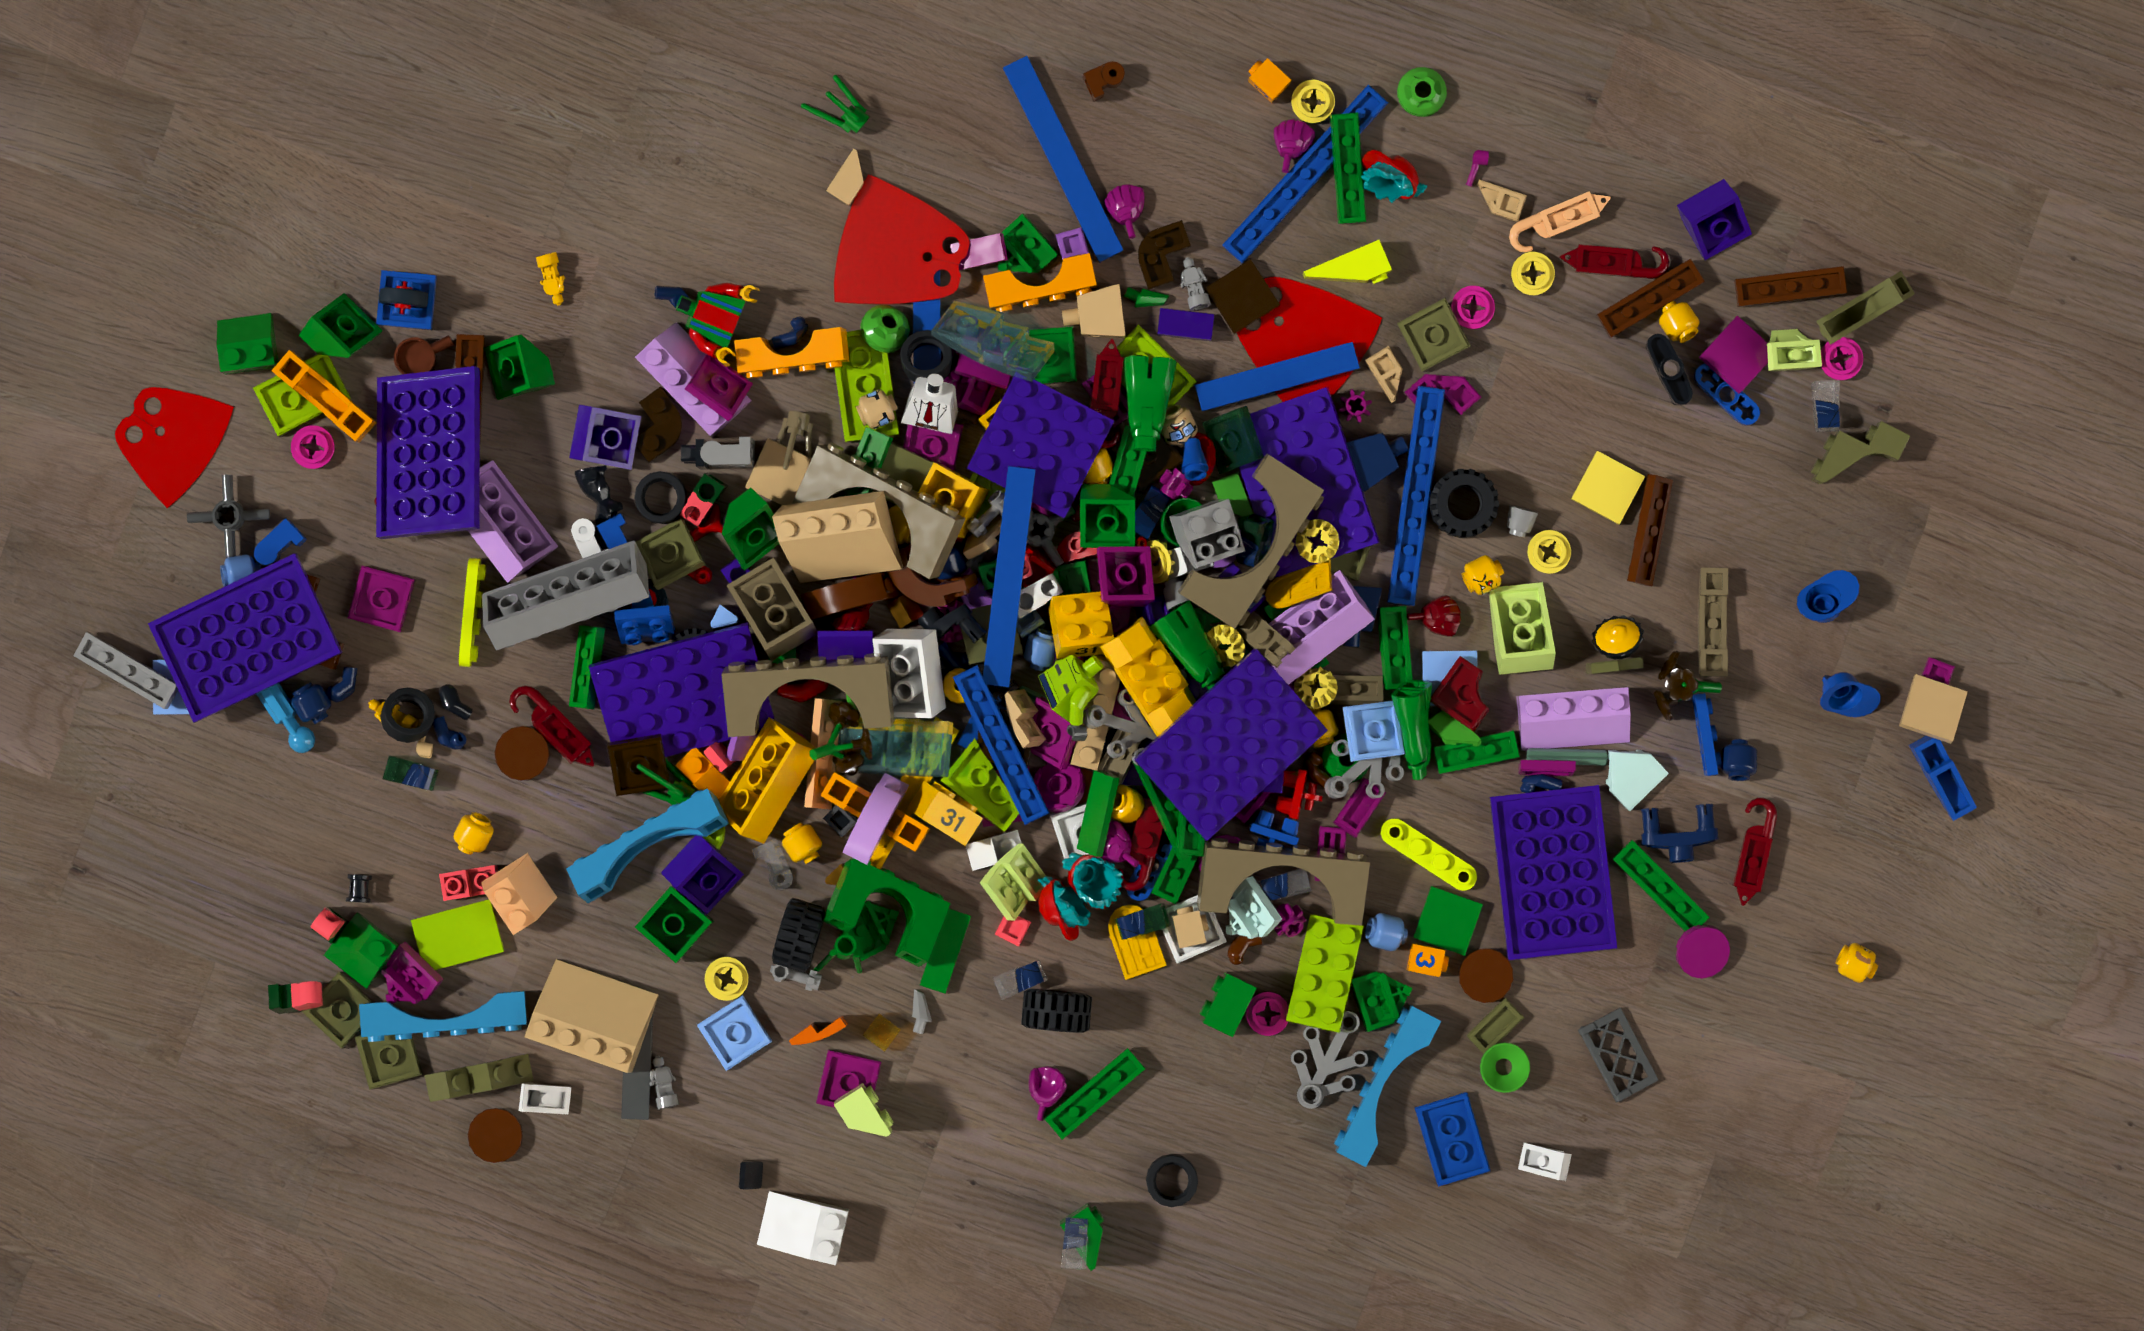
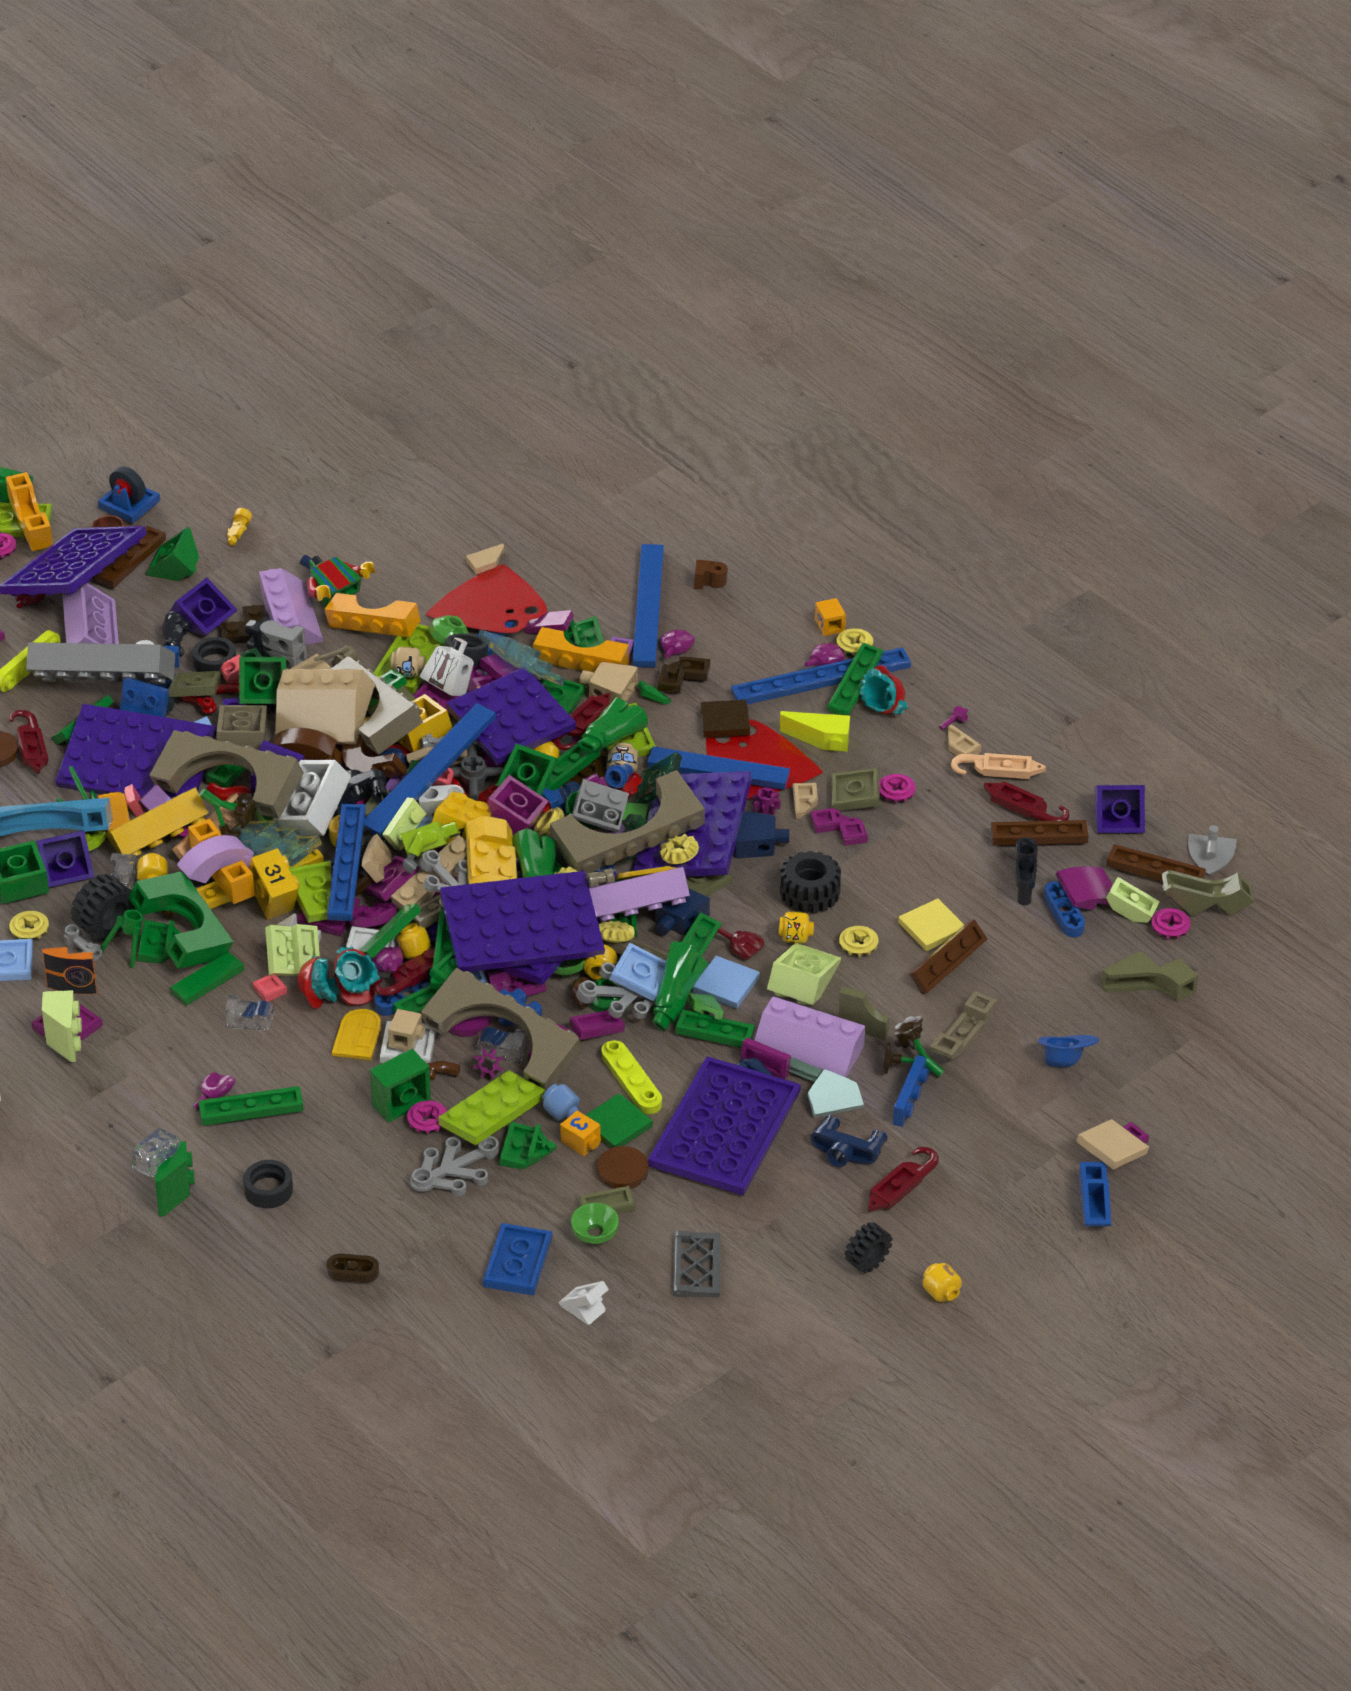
camera: 30 degrees right, 45 degrees down
(339, 329) = (69, 493): green slope -> none
(625, 757) = (60, 782): dark brown tile -> none
(718, 387) = (305, 610): magenta tile -> none
(853, 117) = (515, 528): green plant -> none
(881, 1032) = (117, 1001): clear yellow plate -> none
(920, 1012) = (156, 1006): light grey bar -> none
(1024, 659) = (406, 819): none -> yellowish green plate
(1056, 1010) = (262, 1029): black tyre -> none
(1143, 921) = (372, 1014): leg -> none
(1185, 324) = (670, 718): dark purple slope -> none
(1193, 278) = (691, 702): light grey piece -> none
(1251, 911) = (462, 1047): light aqua slope -> none
(1293, 806) = (556, 994): red hips -> none
(1312, 1237) = (352, 1267): none -> dark brown plate
(1413, 1034) = (531, 1175): dark azure arch -> none
(1416, 495) = (768, 875): blue tile -> none
(1421, 106) = (940, 672): bright green piece -> none
(1460, 695) = (727, 985): dark red tile -> none
(1520, 520) = (849, 911): light grey hat -> none
(1542, 282) = (952, 781): light yellow gear -> none
(1618, 637) = (883, 1002): yellow piece -> none
(1660, 887) = (807, 1170): green plate -> none
(1679, 321) = (1053, 851): yellow head -> none
(1702, 951) = (814, 1220): magenta tile -> none
(1739, 760) = (927, 1116): dark blue head -> none
(1773, 964) = (868, 1247): none -> black tyre
(1826, 405) = (1143, 937): leg -> none
(1829, 225) = (1211, 851): none -> light grey shield
(1848, 696) = (1045, 1112): blue piece -> none

